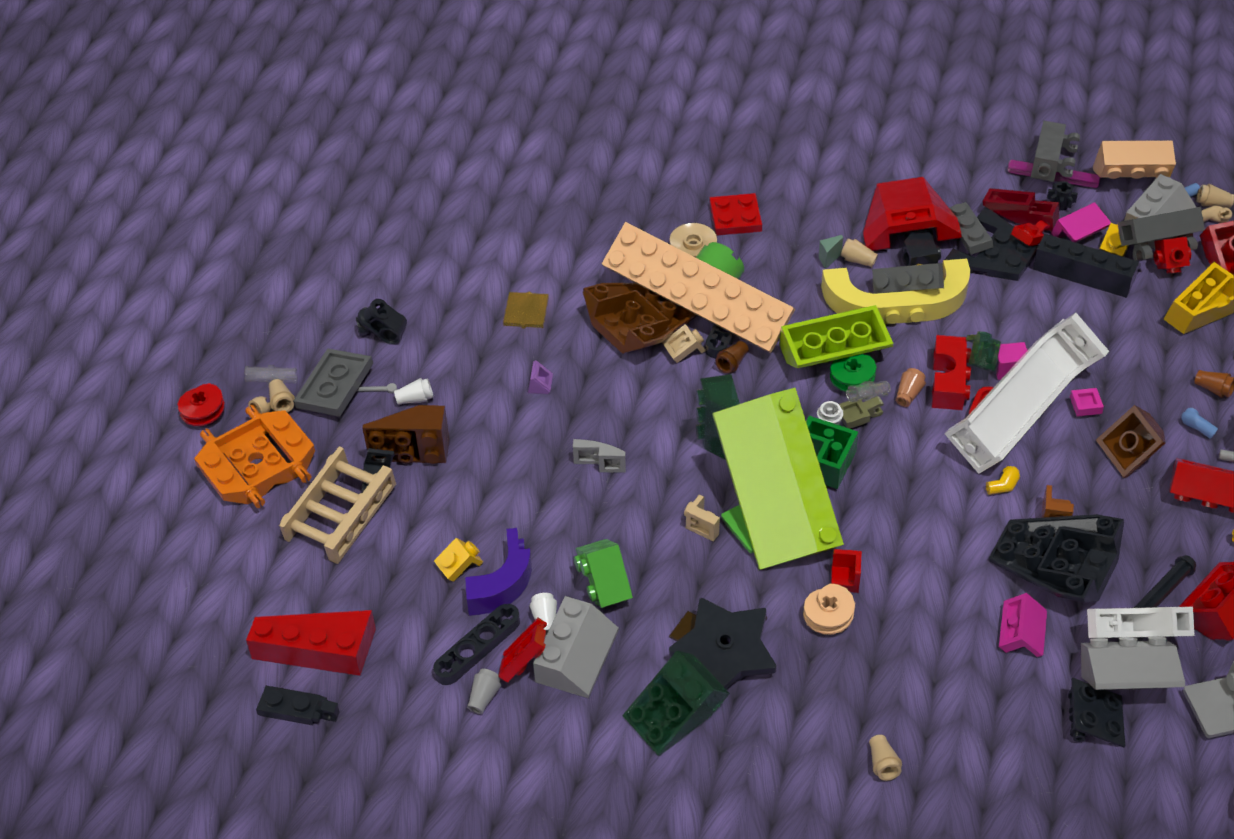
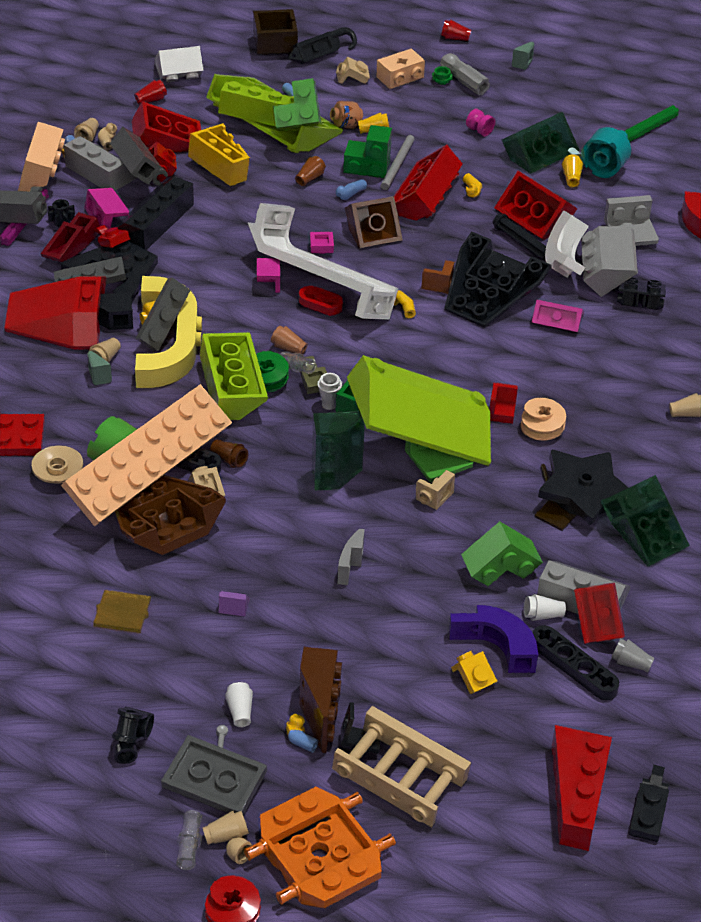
camera: 90 degrees left, 5 degrees down
(950, 387) = (260, 307): red arch -> none
(984, 350) = (267, 283): clear green bracket -> none
(1112, 242) = (129, 191): yellow bracket -> none

